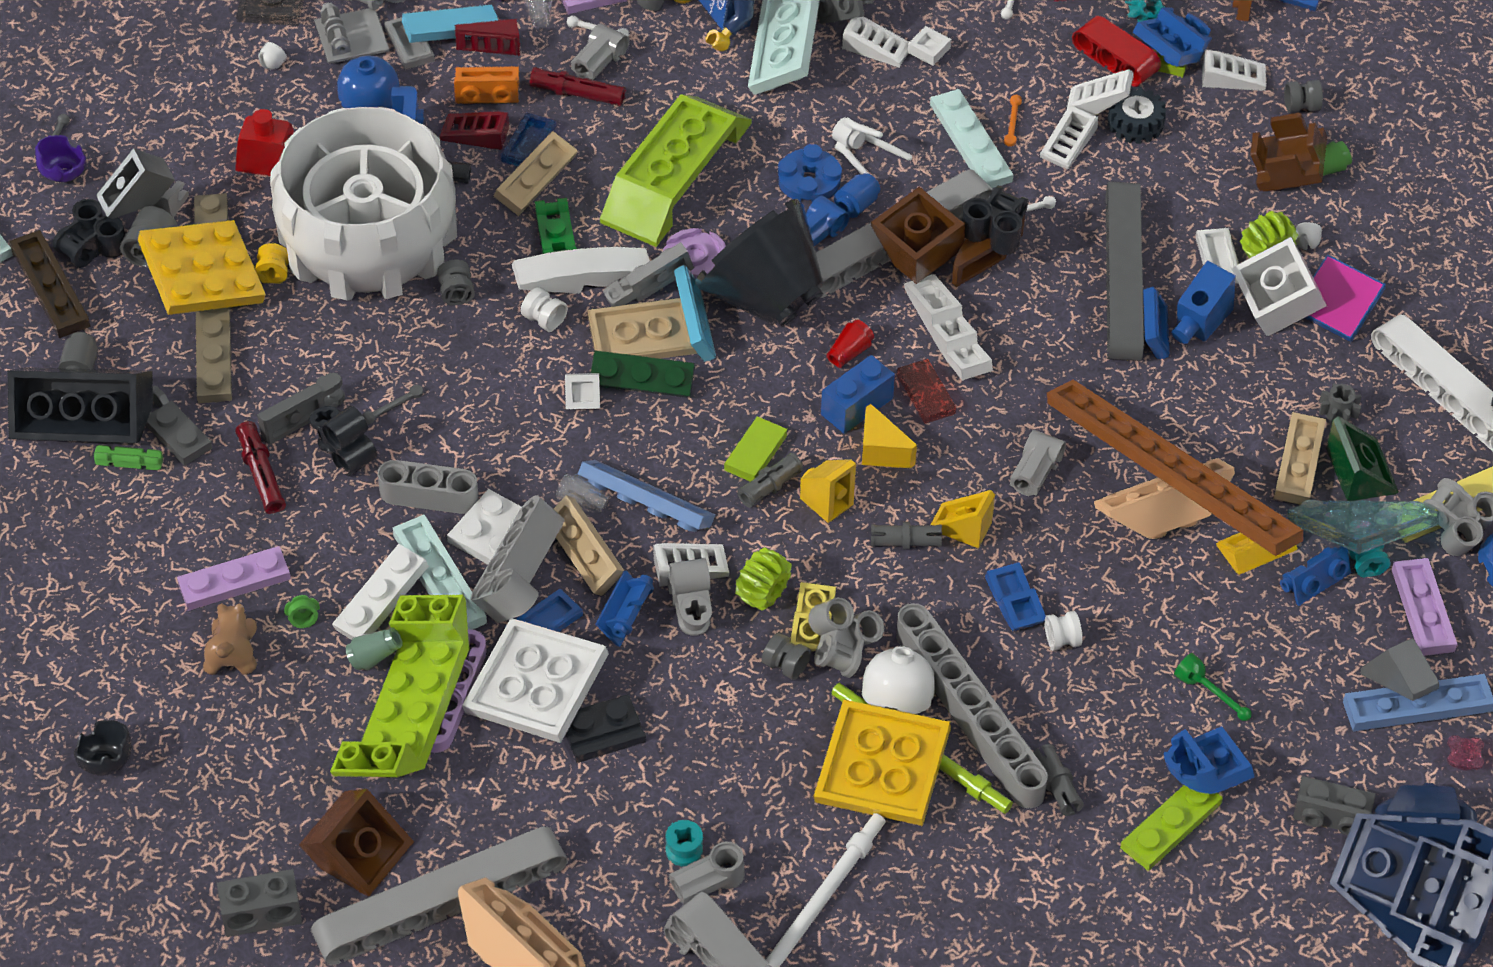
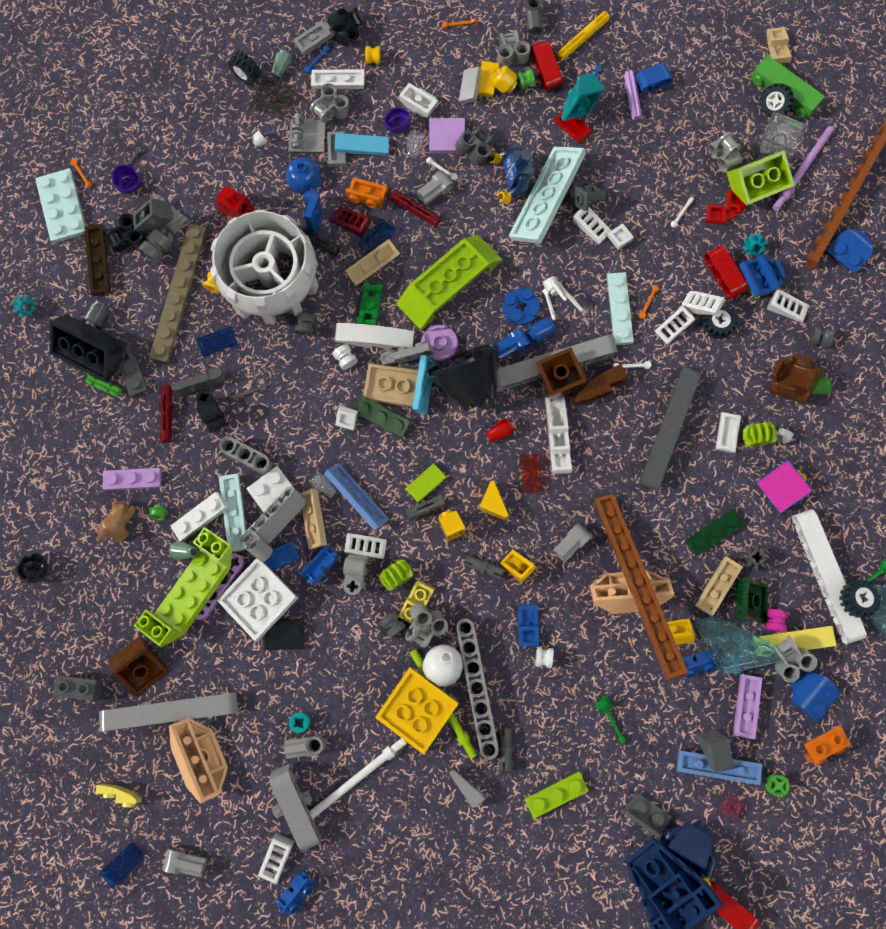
camera: 25 degrees right, 25 degrees up
(201, 267) = (173, 277): yellow plate -> none
(309, 346) = (217, 341): none -> clear blue tile
(498, 35) = (382, 161): dark red slope -> none
(849, 395) = (491, 467): blue brick -> none
(995, 219) = (610, 378): black piece -> none
(1017, 852) = (470, 792): none -> light grey slope
(1156, 323) = (673, 470): blue tile -> none
(1205, 303) = (709, 465): blue torso -> none
(1207, 761) = (587, 769): blue slope -> none
(1259, 392) = (714, 532): none -> dark green plate
(1278, 287) = (751, 472): white brick -> none
(1413, 475) = (776, 620): none -> dark pink wheel

